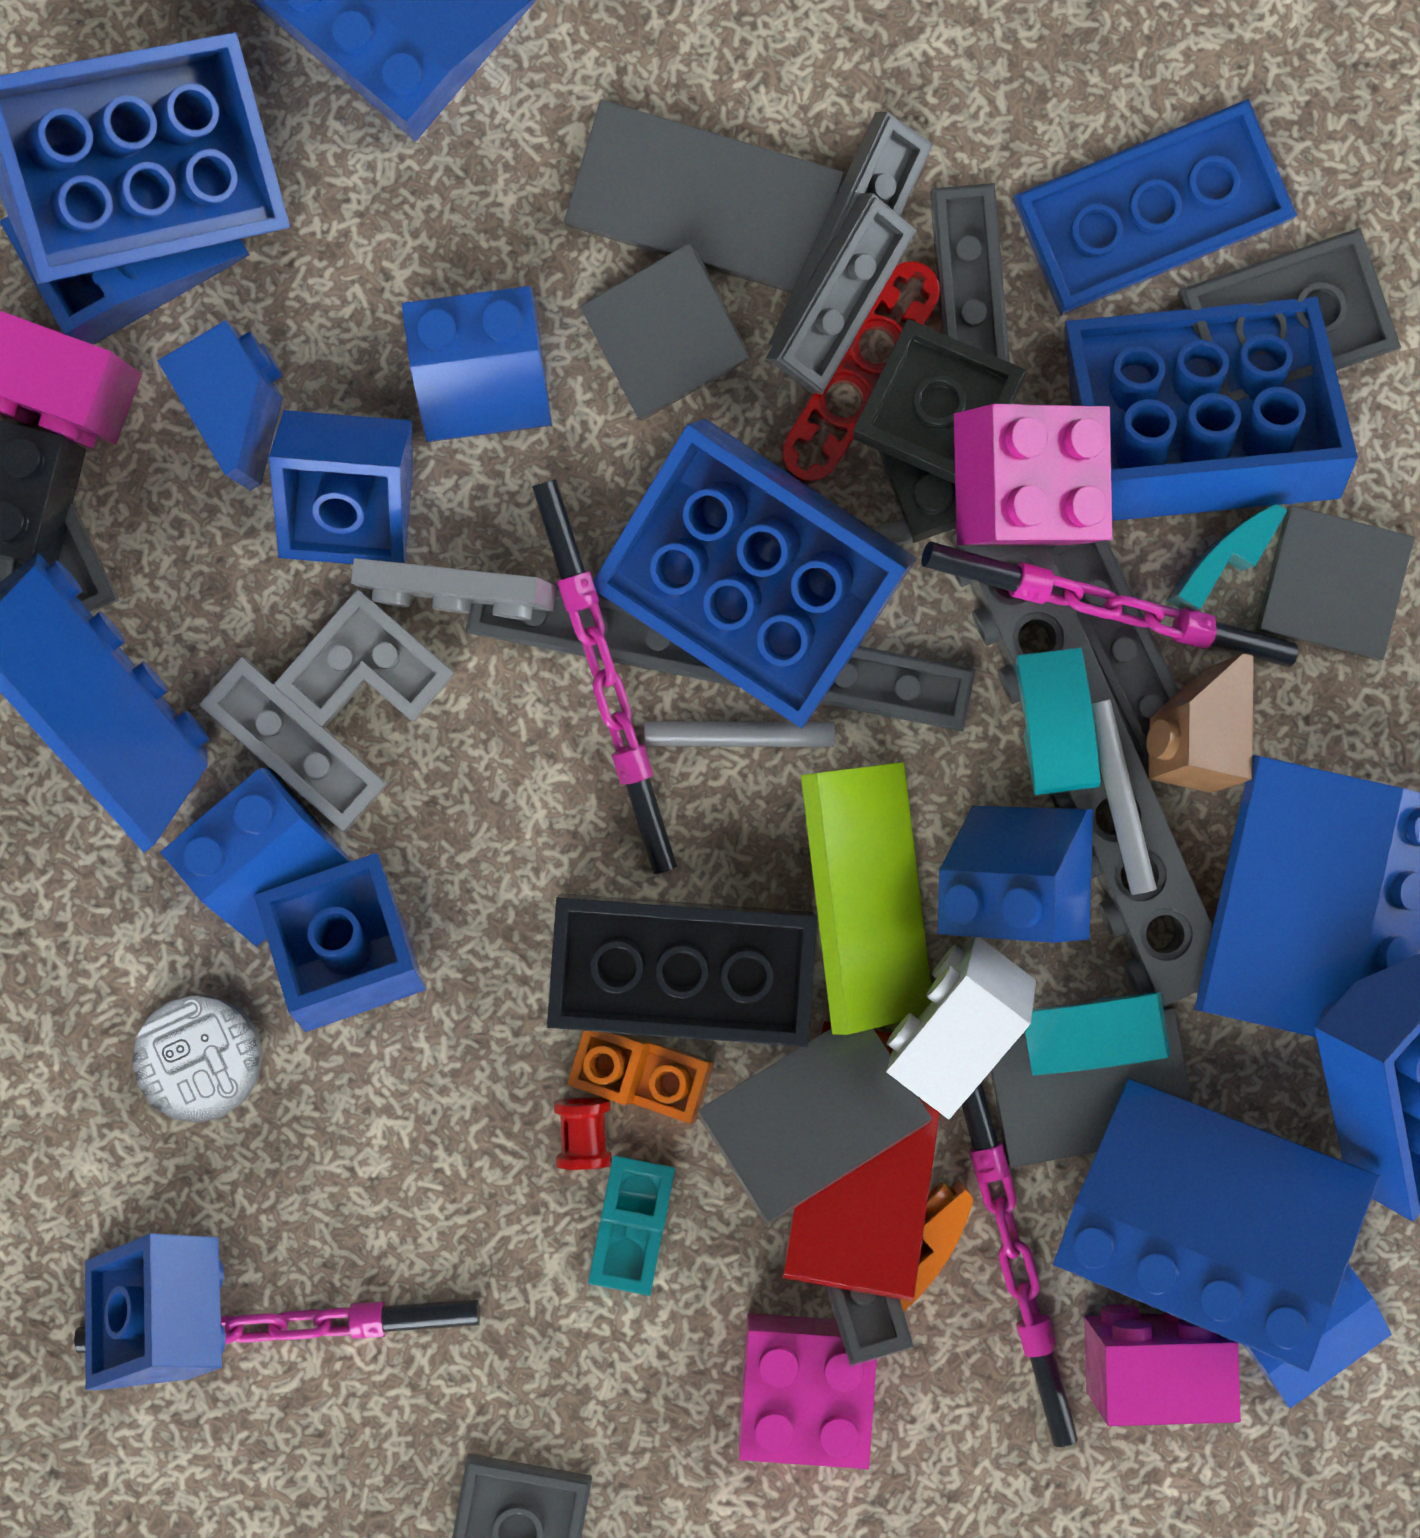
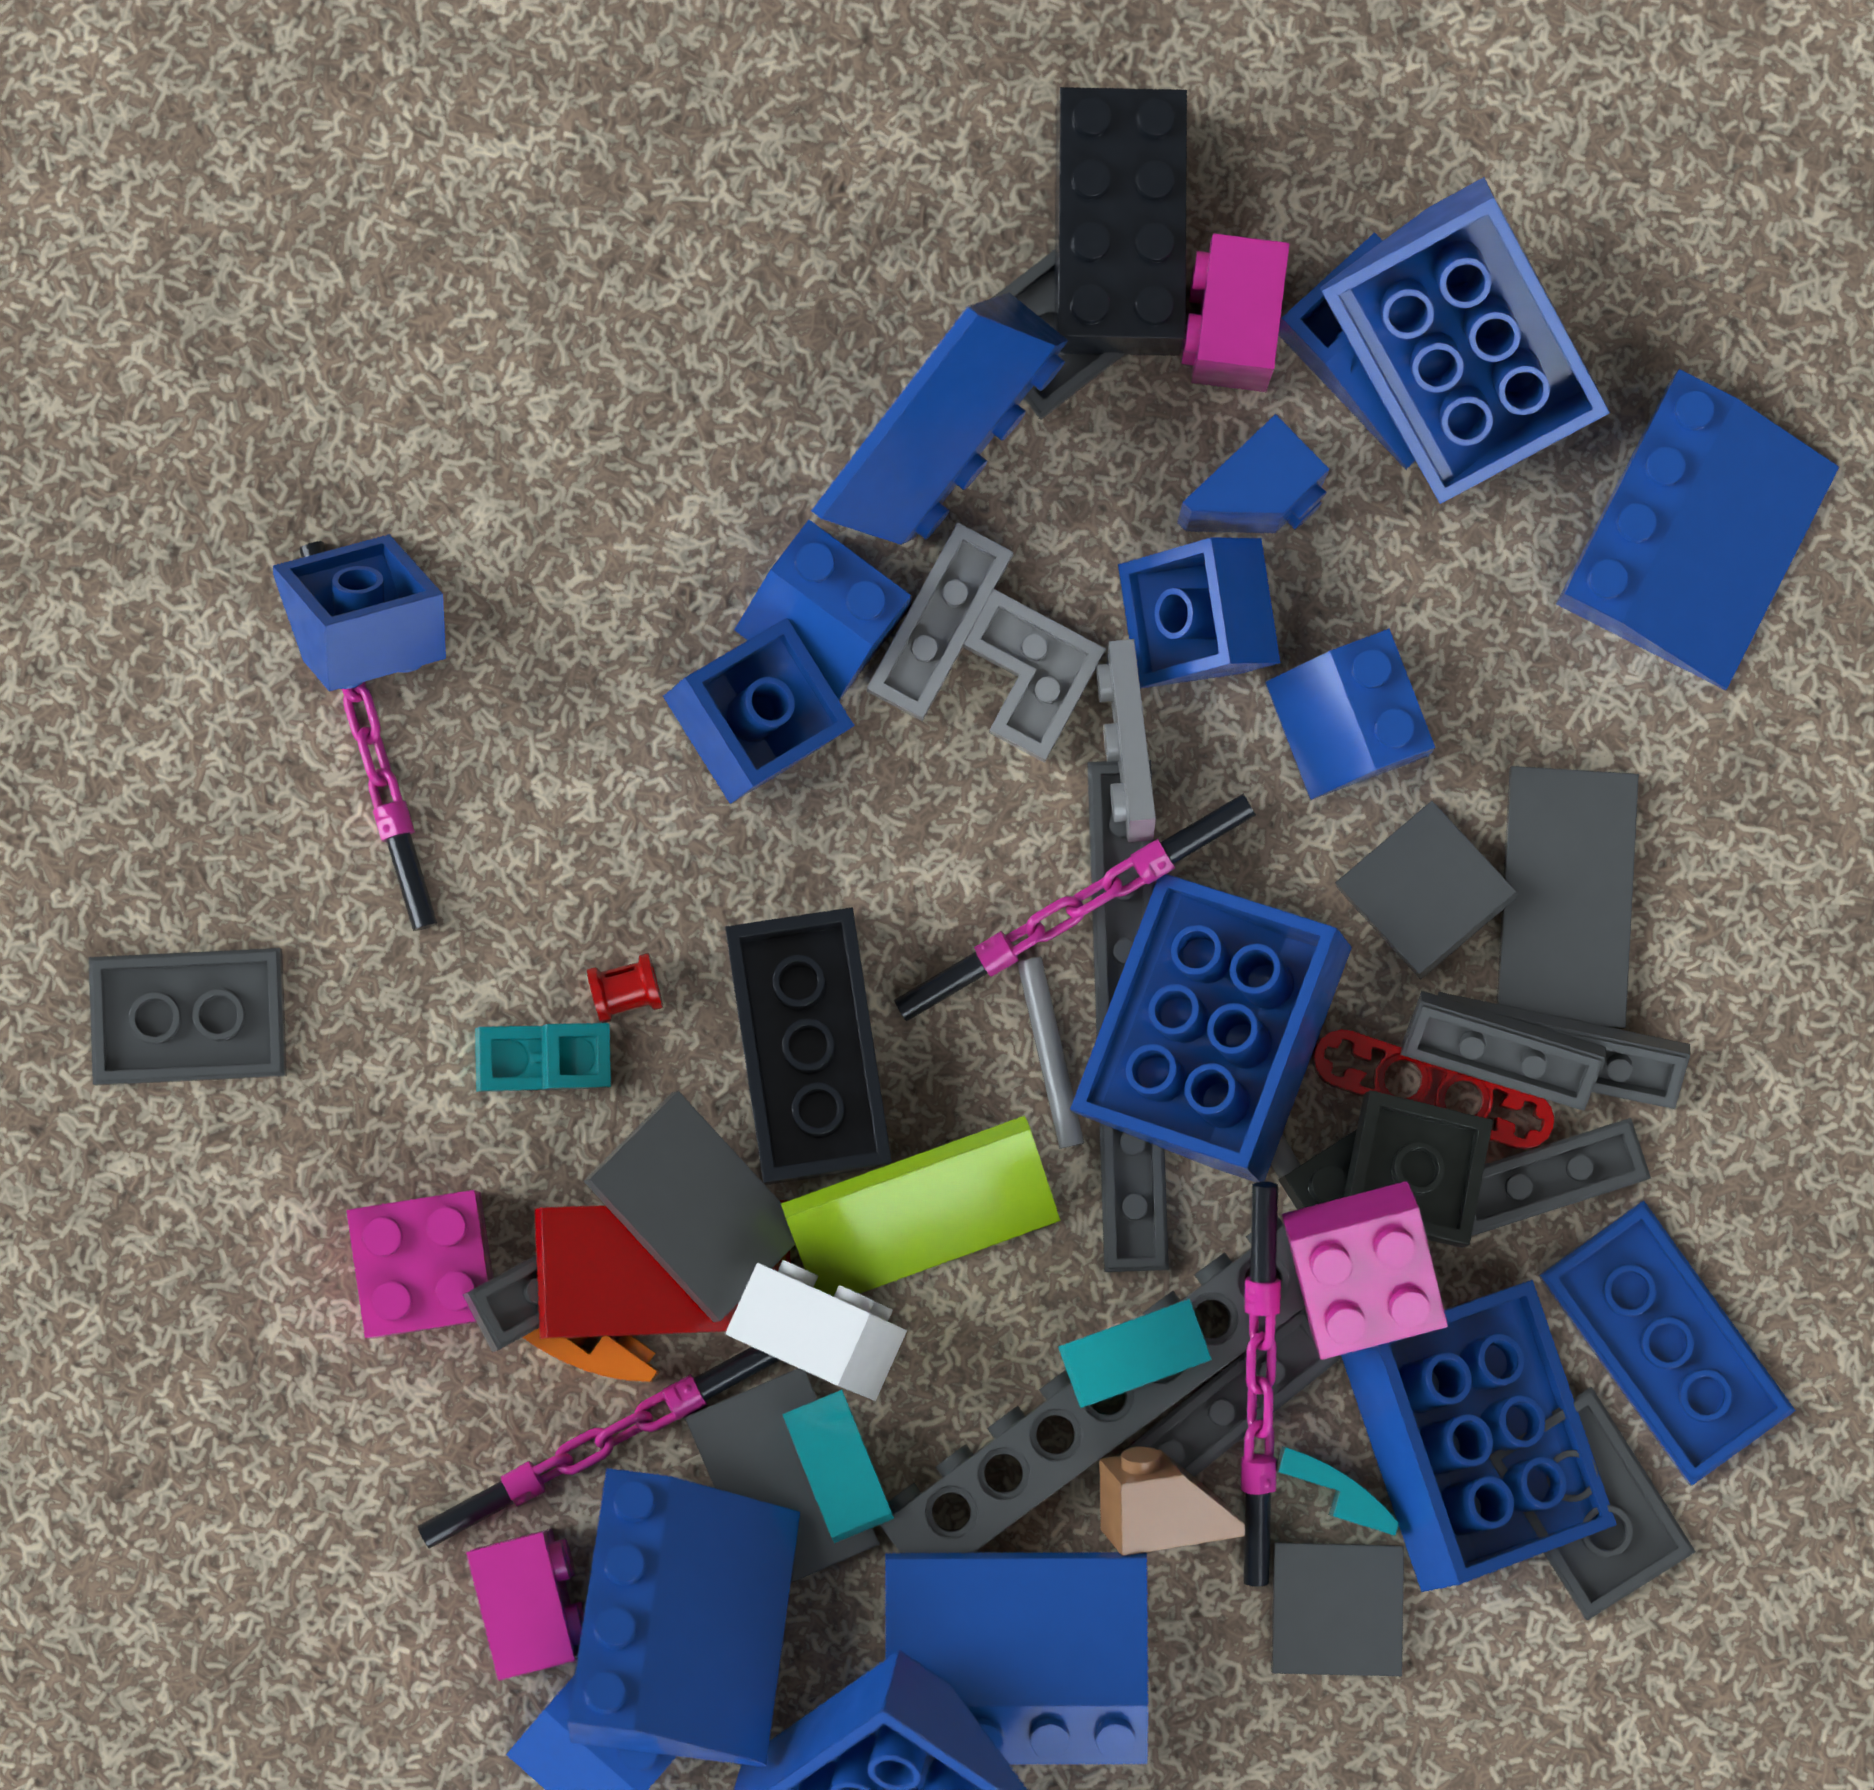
camera: 75 degrees right, 5 degrees down
(197, 1058) = (612, 598): tile -> none
(641, 1074) = (695, 1031): orange slope -> none
(1018, 875) = (976, 1353): blue slope -> none
(1122, 800) = (1075, 1433): light grey bar -> none

